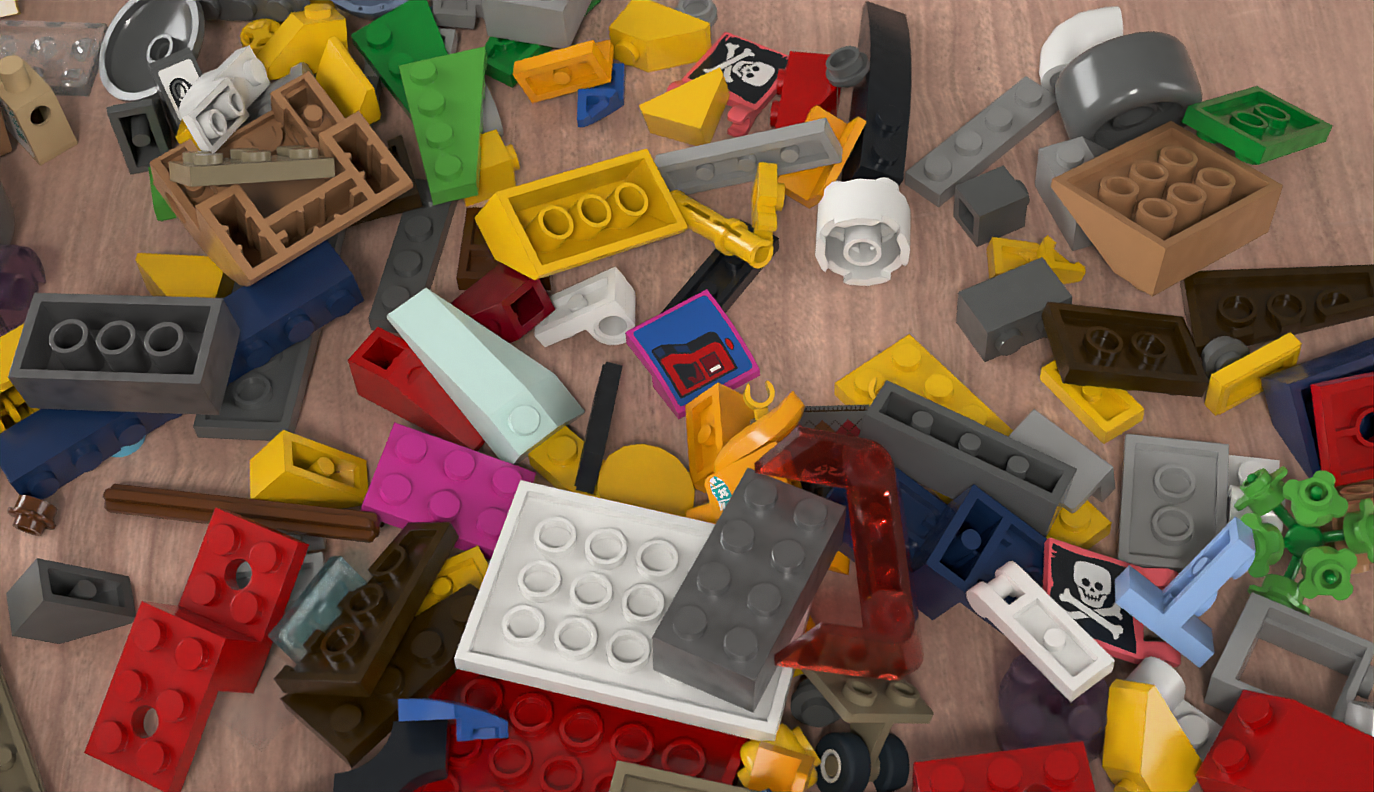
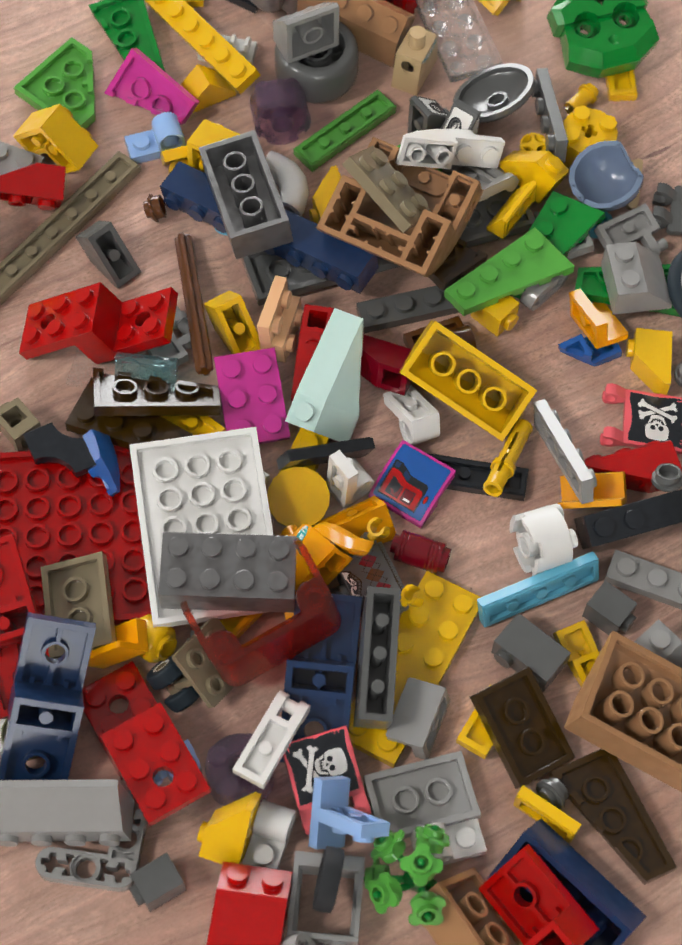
camera: 60 degrees right, 10 degrees up
(72, 232) = (344, 130): none -> bright green tile
(346, 405) = (280, 319): none -> light nougat plate
(651, 414) = (347, 479): none -> white plate
(688, 111) = (597, 405): yellow slope -> none
(766, 199) = (542, 475): yellow plate -> none
(809, 372) = (420, 552): none -> dark red head
(926, 270) = (538, 589): none -> medium azure tile
(1297, 612) = (328, 879): none -> black tyre

